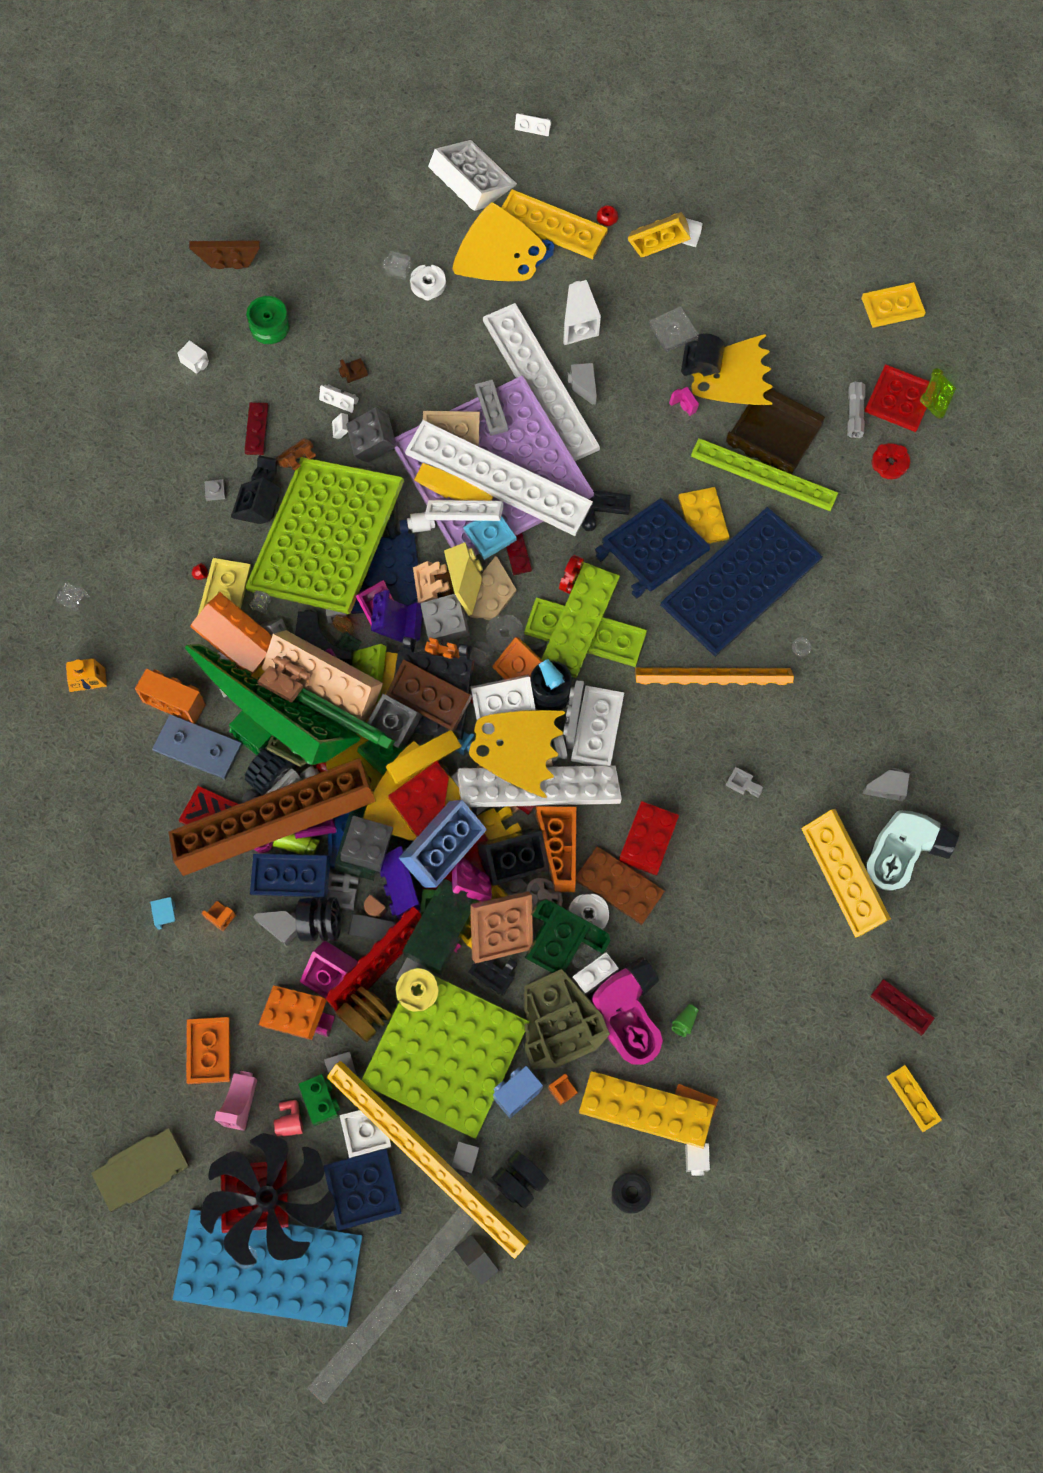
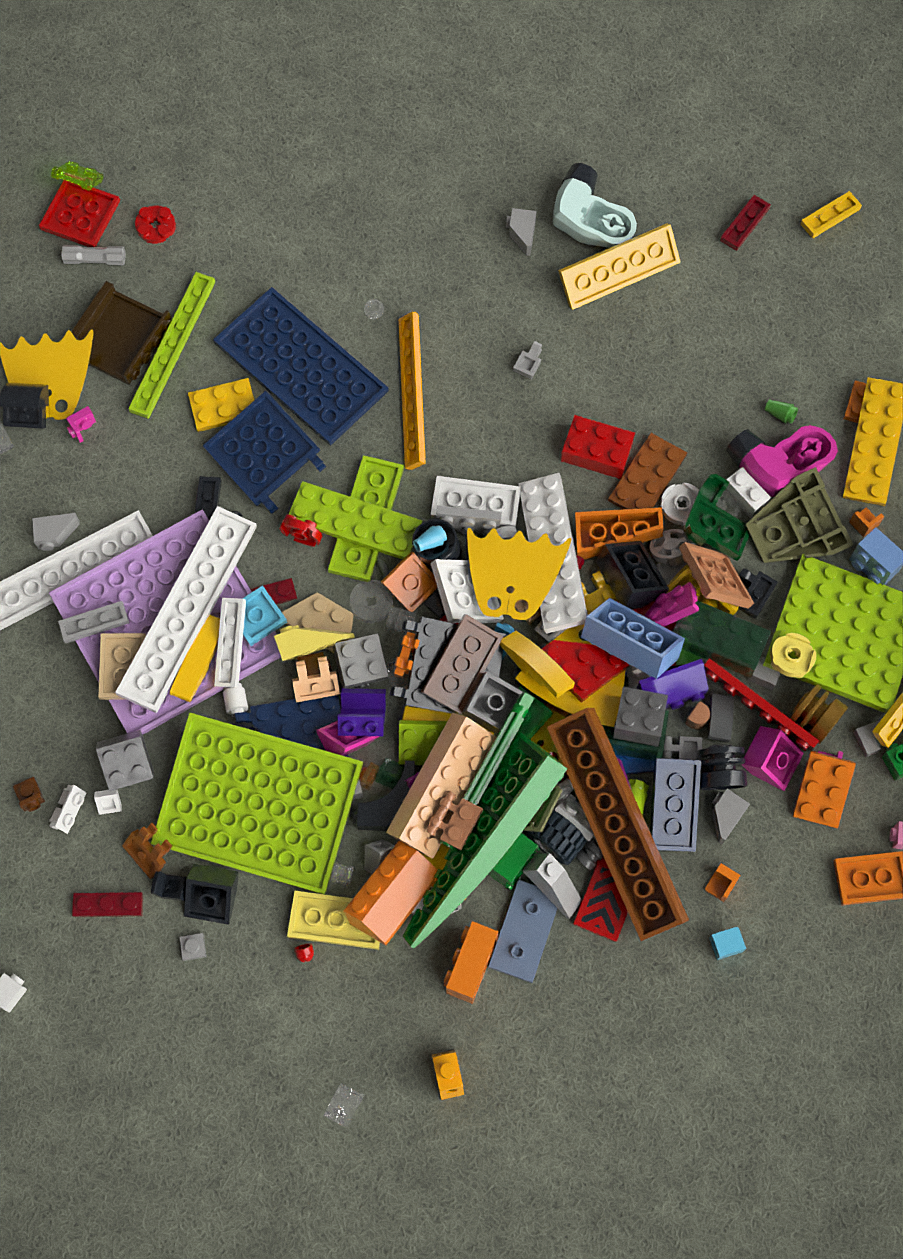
camera: 90 degrees left, 0 degrees up
(228, 765) = (553, 882): none -> light grey slope

